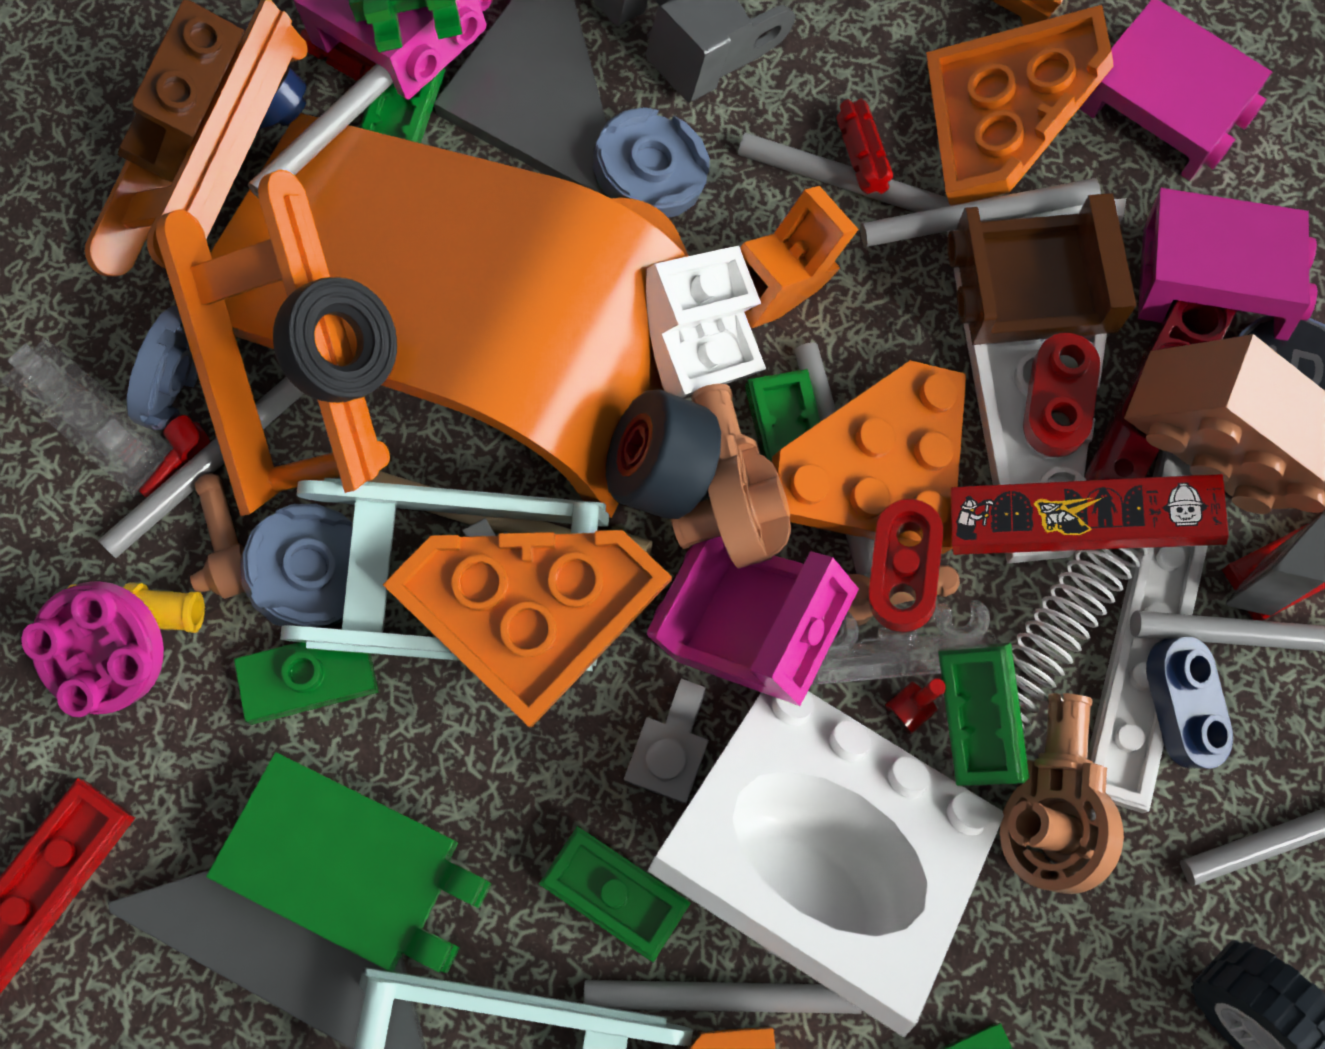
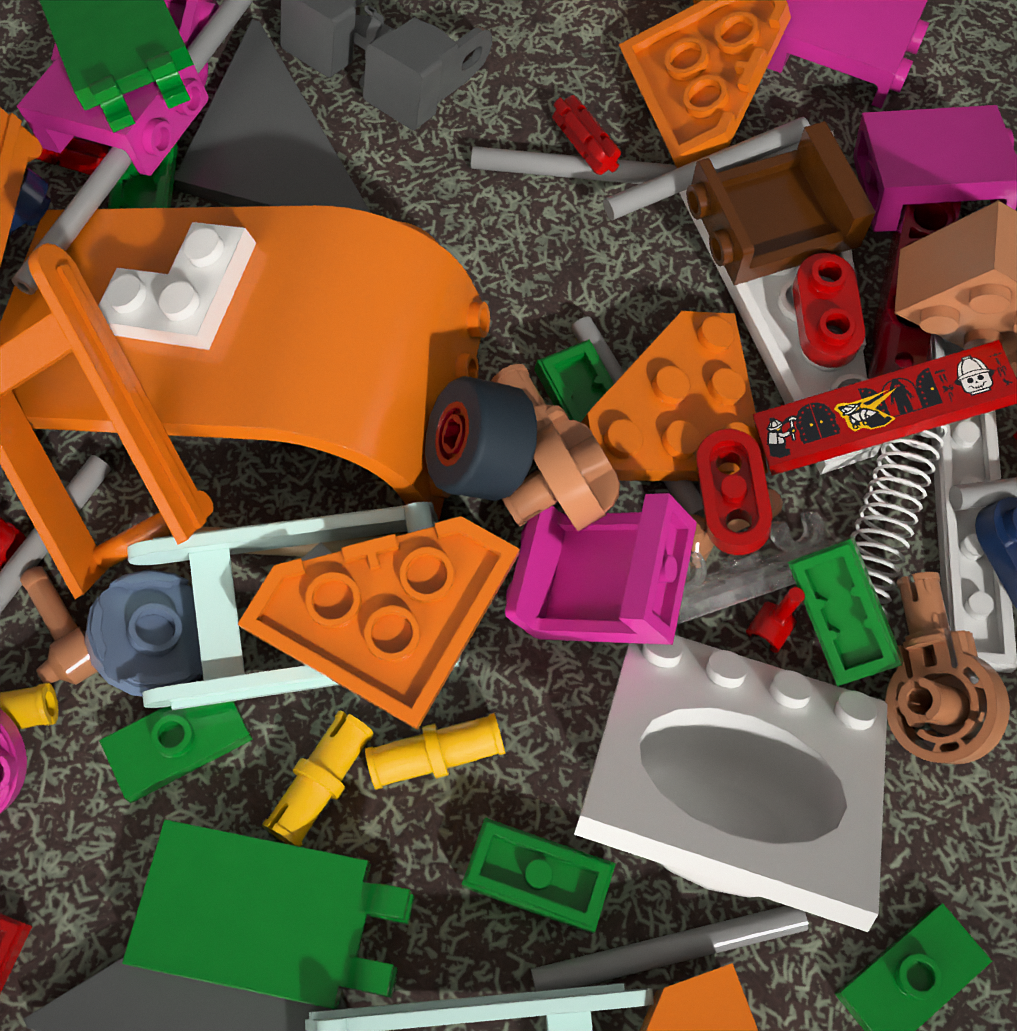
camera: 15 degrees left, 5 degrees down
(297, 348) = (107, 417): black tyre -> none
(409, 249) = (187, 301): none -> white plate
(429, 748) = (318, 779): none -> yellow pin
(547, 748) = (434, 751): none -> yellow pin
(651, 160) = (394, 184): sand blue tile -> none
(668, 753) = (554, 726): light grey plate -> none
(701, 321) = (478, 311): white slope -> none
(798, 255) = (549, 250): orange brick -> none

